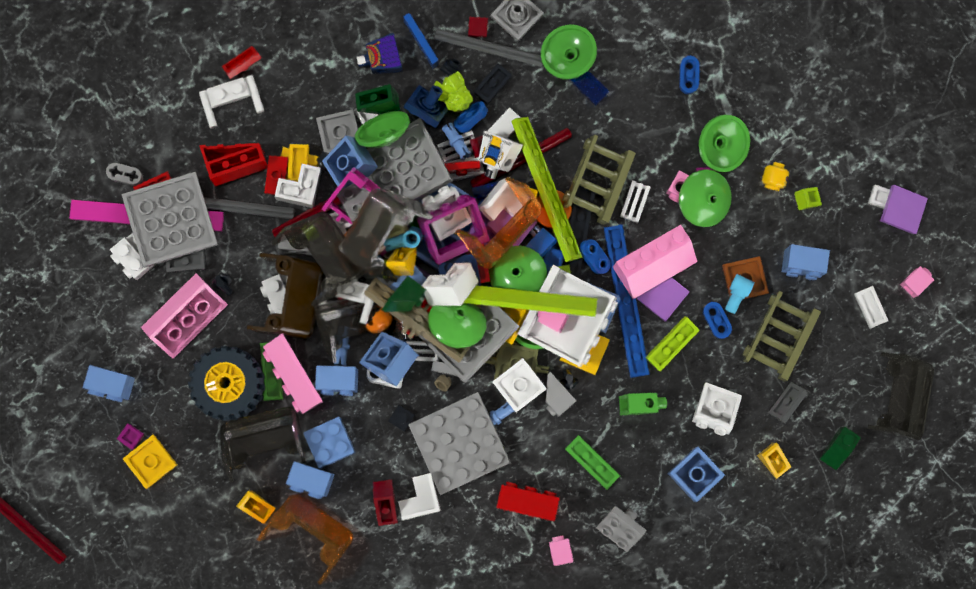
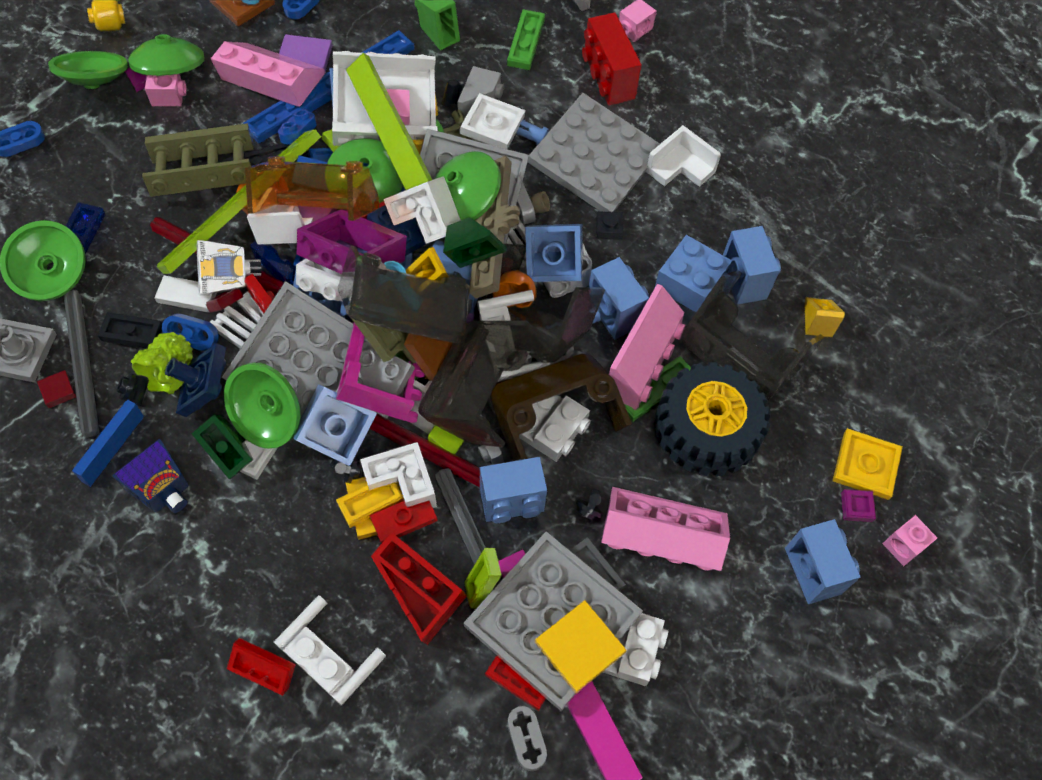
camera: 125 degrees left, 20 degrees down
(91, 445) = (909, 540): none -> bright pink brick
(144, 221) = (580, 646): none -> yellow tile
(213, 195) = (482, 577): none -> lime tile
(252, 240) = (513, 490): none -> medium blue brick
(318, 523) = (803, 267): clear orange windscreen -> none
(335, 128) = (296, 477): light grey plate -> none
(384, 502) = (710, 190): dark red slope -> none
(456, 141) = (233, 324): medium blue pin -> none
(640, 186) = (207, 120): white tile -> none
(672, 343) = (352, 23): lime plate -> none

